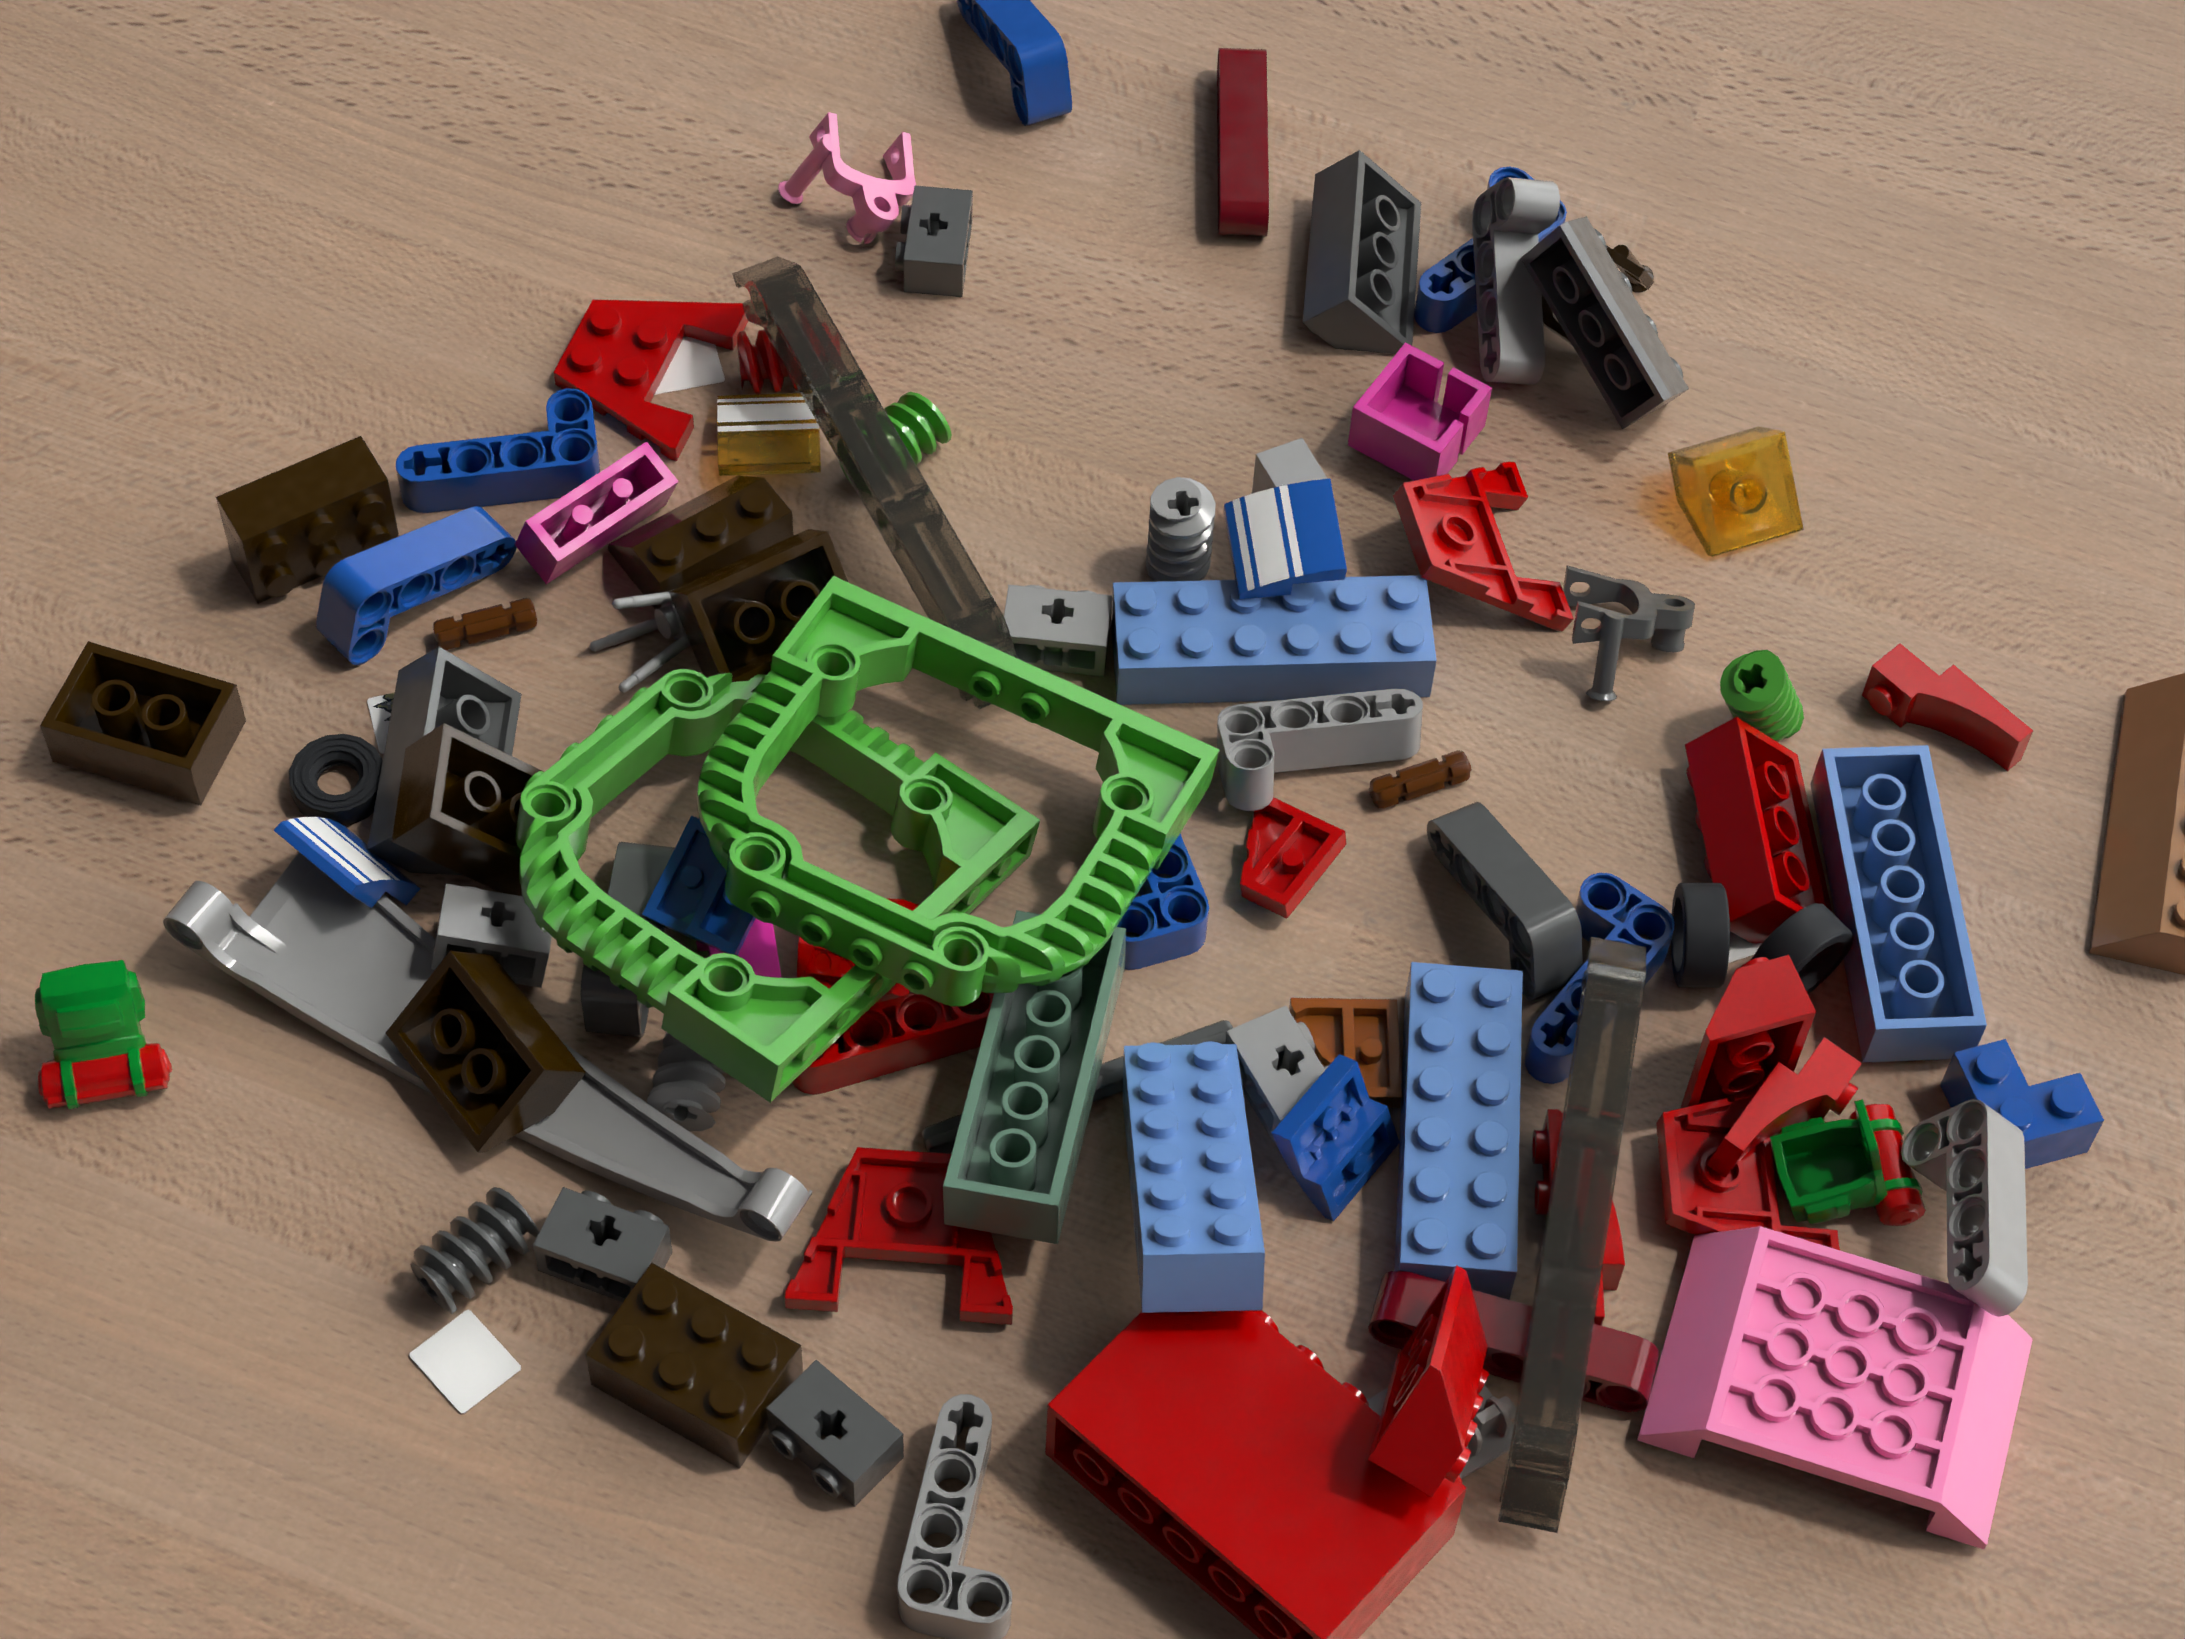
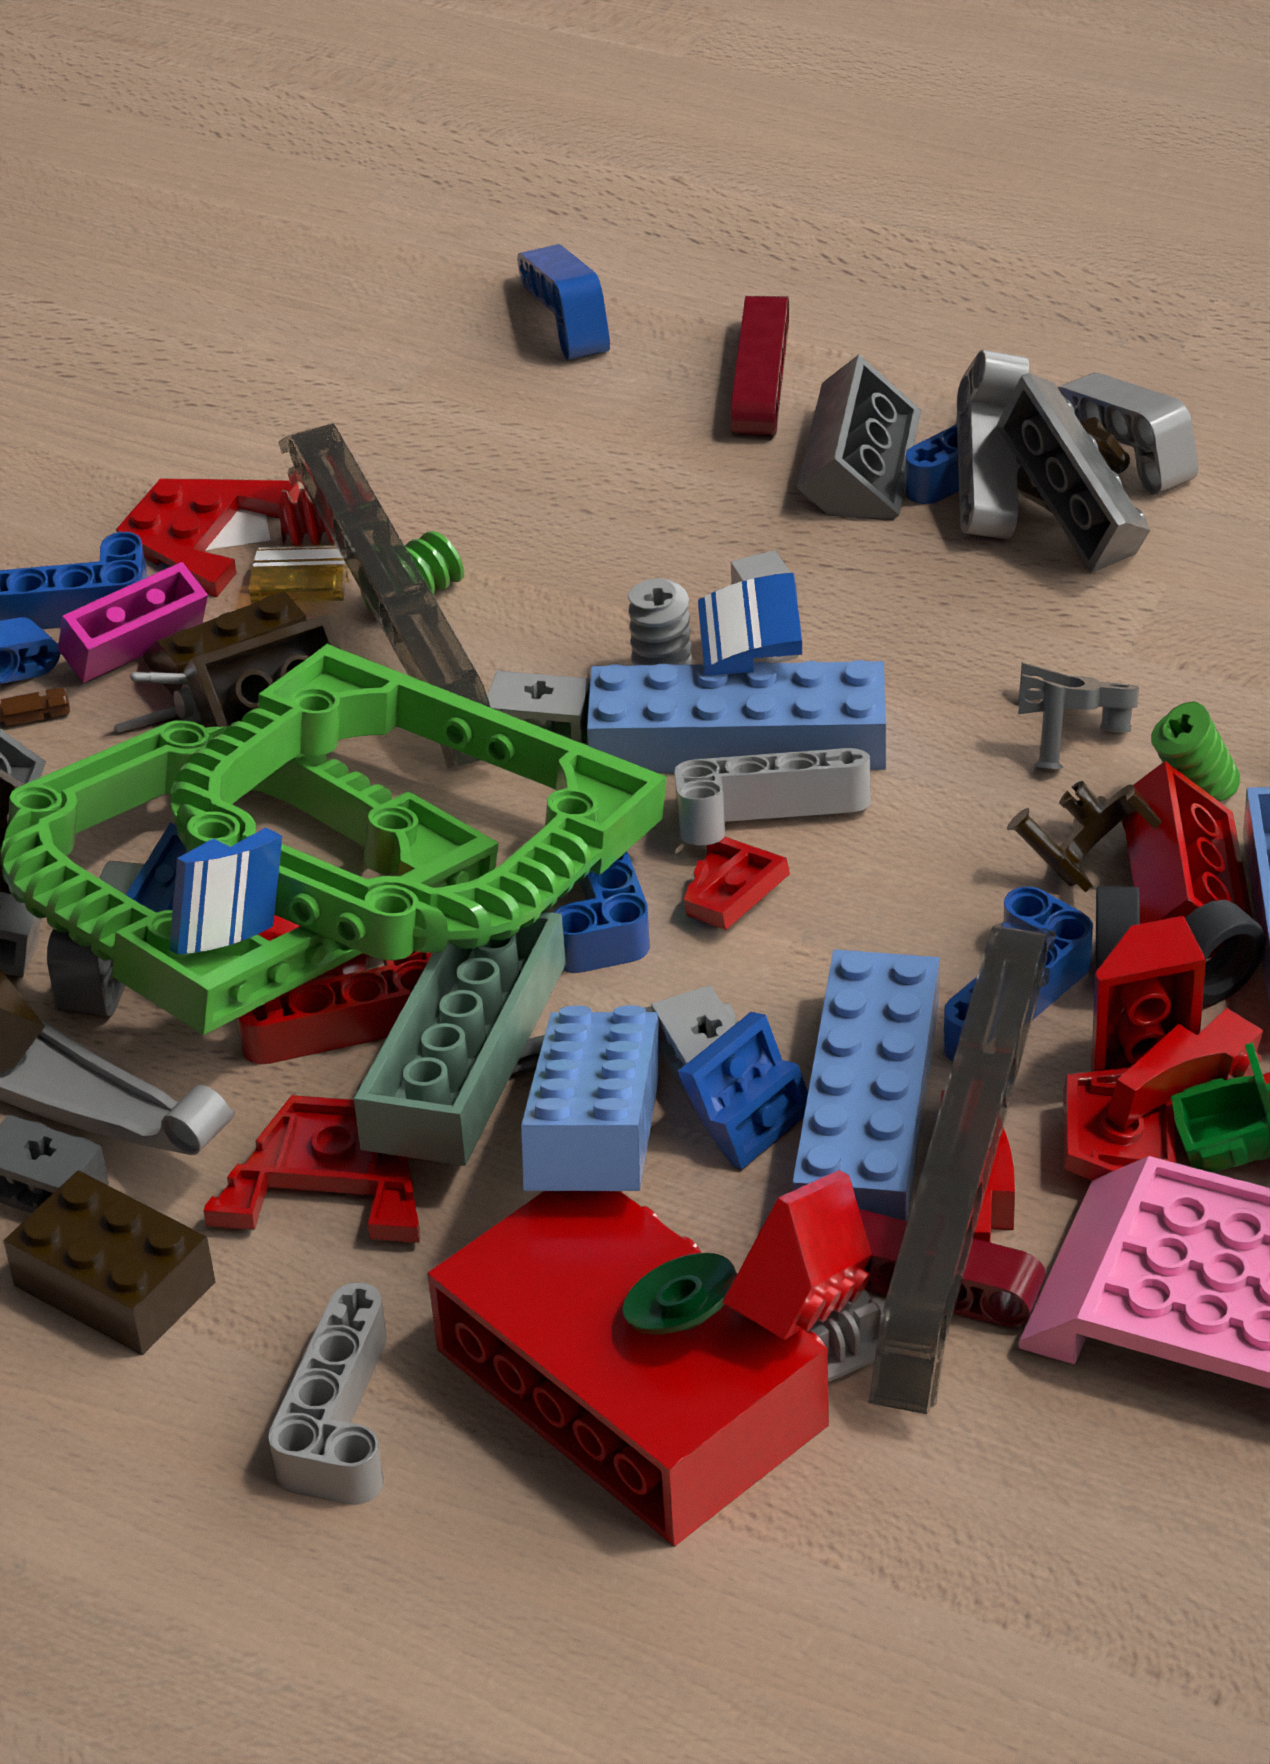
camera: 10 degrees right, 15 degrees down
(686, 1086) = (143, 1039): light grey piece -> none
(787, 951) = (225, 892): none -> blue slope
(825, 1405) = (233, 1320): dark grey brick -> none
(874, 198) = (419, 402): bright pink piece -> none
(936, 242) = (473, 435): dark grey brick -> none
(1315, 1421) = (679, 1294): none -> dark green dish
(1361, 1031) = (792, 1015): dark orange wing -> none
(1405, 425) = (881, 557): dark pink piece -> none
(1420, 779) = (866, 826): reddish brown axle -> none
(1462, 547) = (924, 642): red wing -> none
(1513, 894) = (937, 902): dark grey beam -> none
(1660, 232) = (1143, 419): none -> light grey beam
(1660, 776) = (1092, 821): none -> dark brown piece
(1737, 489) = (1191, 608): clear yellow slope -> none

